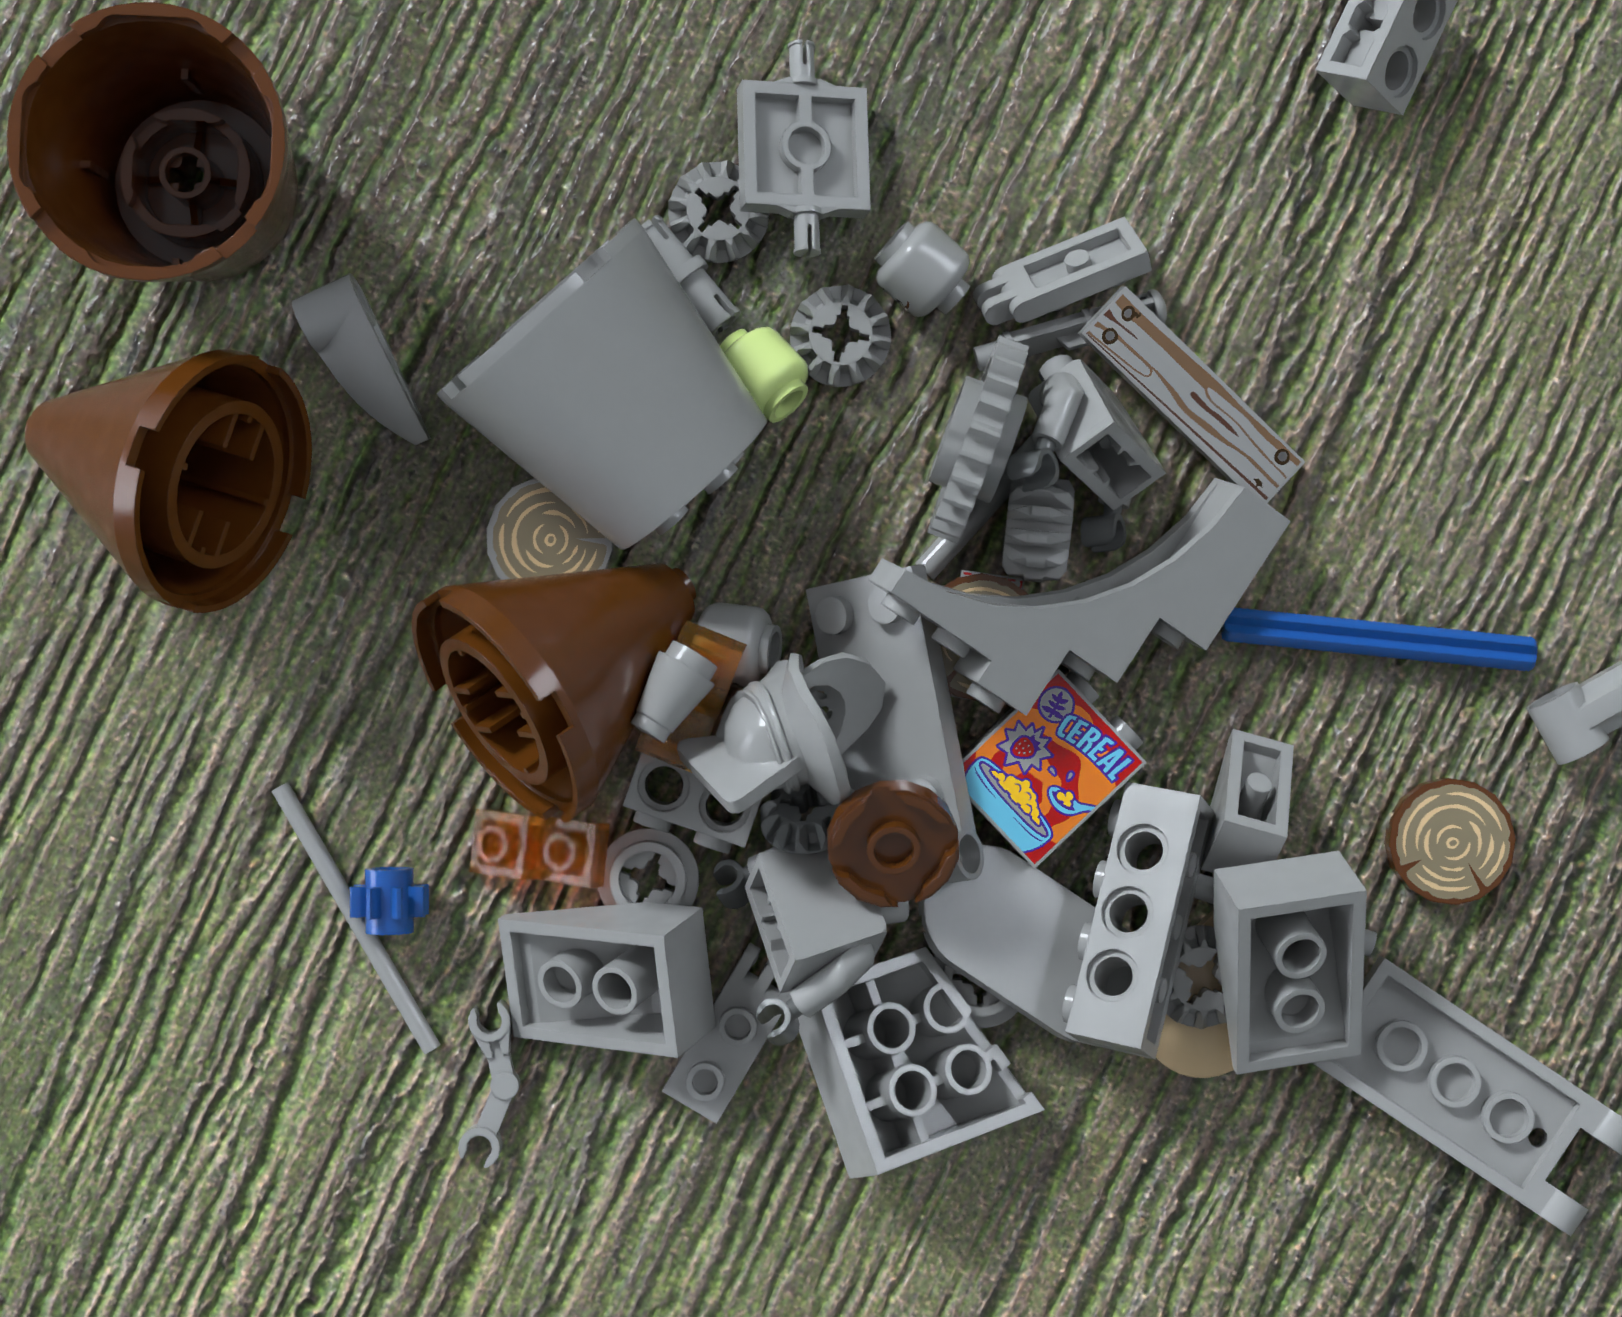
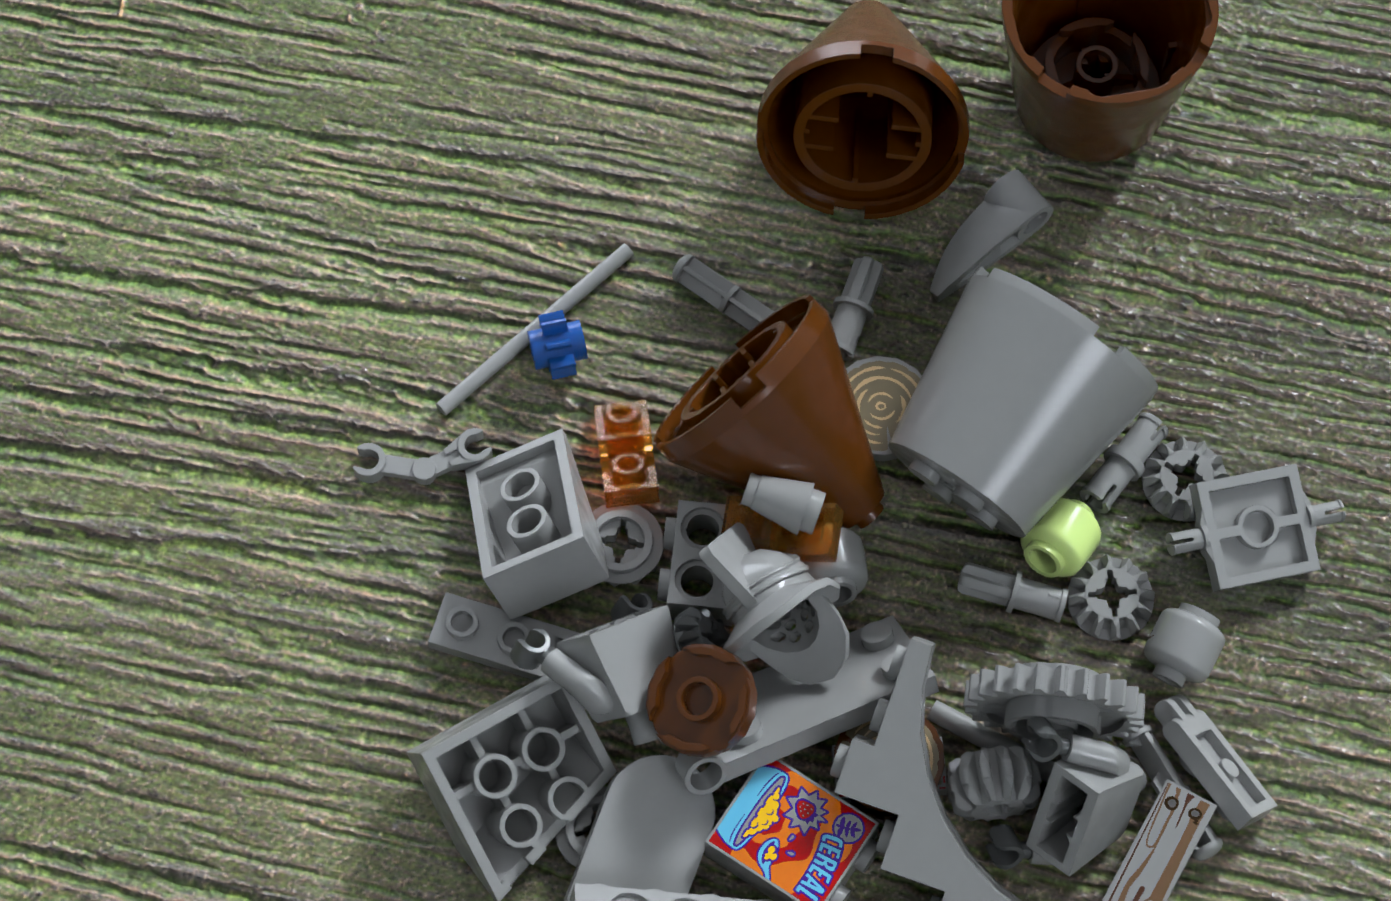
camera: 80 degrees right, 20 degrees down
(364, 690) = (719, 292): none -> light grey piece
(417, 540) = (855, 304): none -> light grey axle
(810, 444) = (1012, 591): none -> light grey axle

